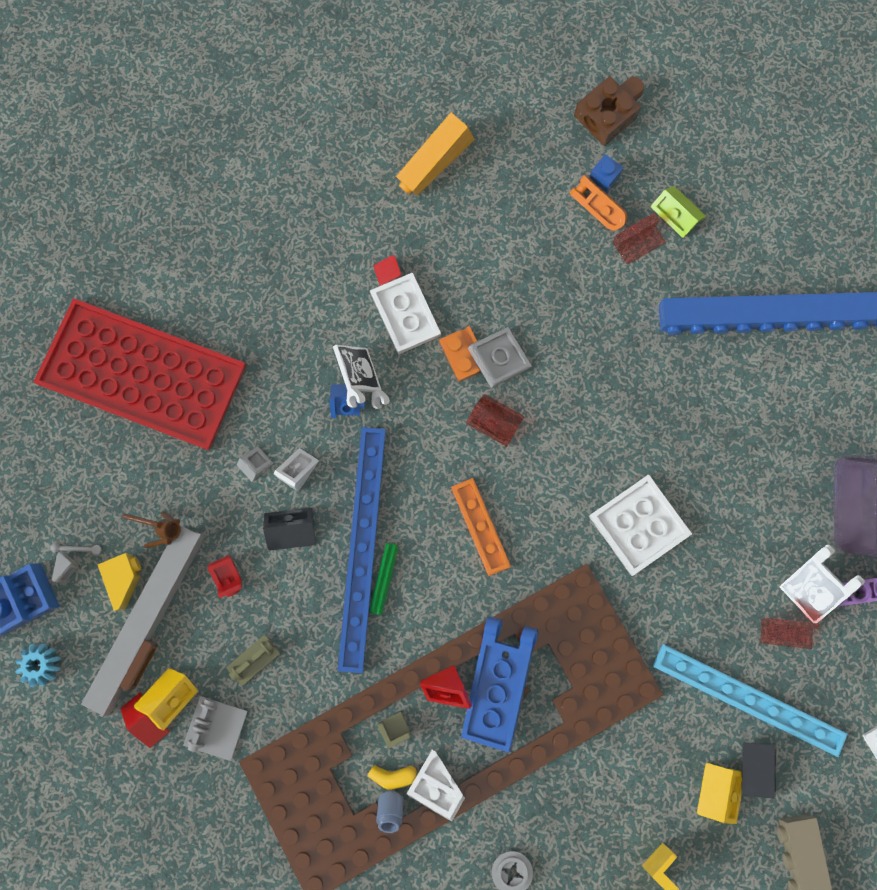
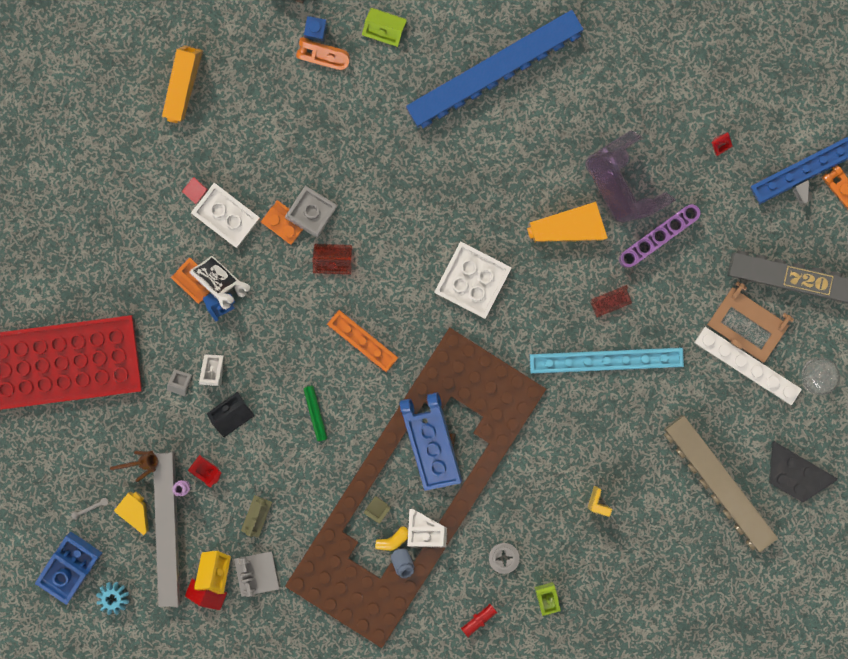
camera: 30 degrees left, 10 degrees up
(63, 568) = (91, 525): light grey slope -> none
(139, 665) = (181, 561): reddish brown tile -> none
(187, 580) = (177, 490): none -> lavender pin
(327, 362) = (189, 282): none -> orange plate
(362, 551) = (288, 400): blue plate -> none
(446, 688) = (397, 464): red slope -> none
(639, 239) = (366, 66): clear red panel -> none
(720, 794) = (617, 433): yellow panel -> none
(759, 770) = (634, 403): black panel -> none
(786, 524) = (572, 225): none -> light orange slope
(817, 588) = (613, 260): flag -> none

